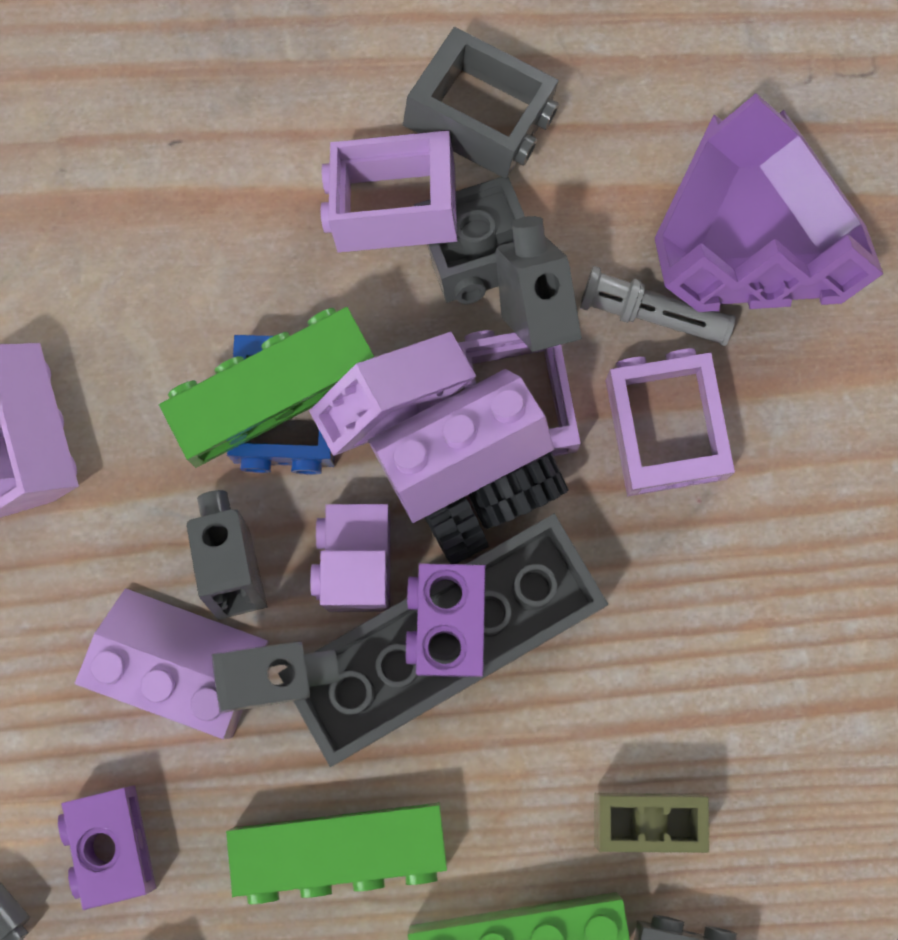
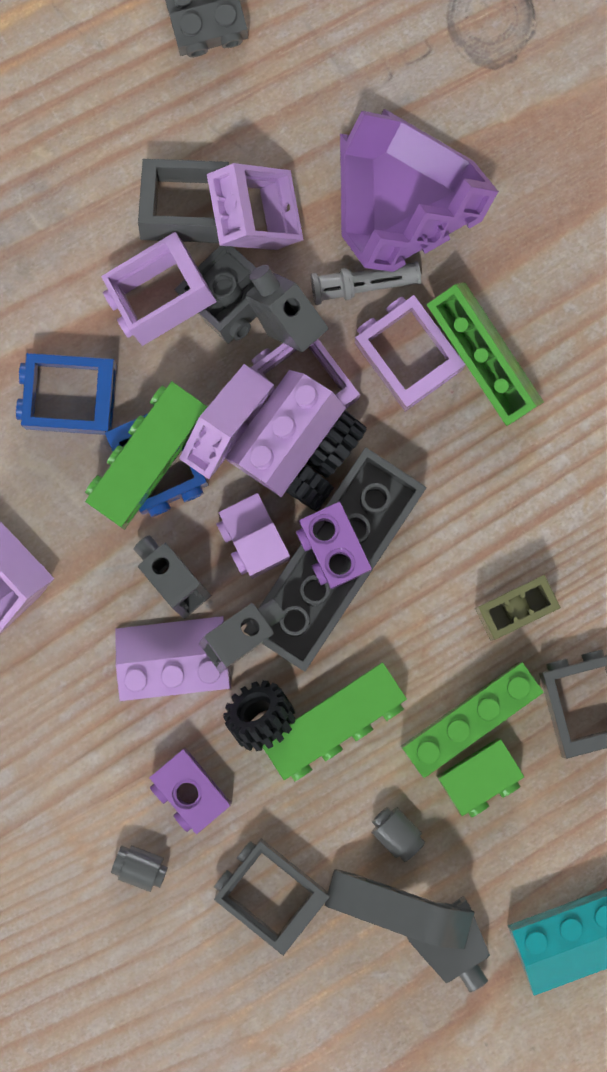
camera: 25 degrees left, 5 degrees up
(251, 814) = (269, 726): none -> black tyre
(258, 294) = (104, 395): none -> blue window
(531, 138) = (233, 208): none -> lavender window
(766, 470) = (485, 353): none -> bright green brick

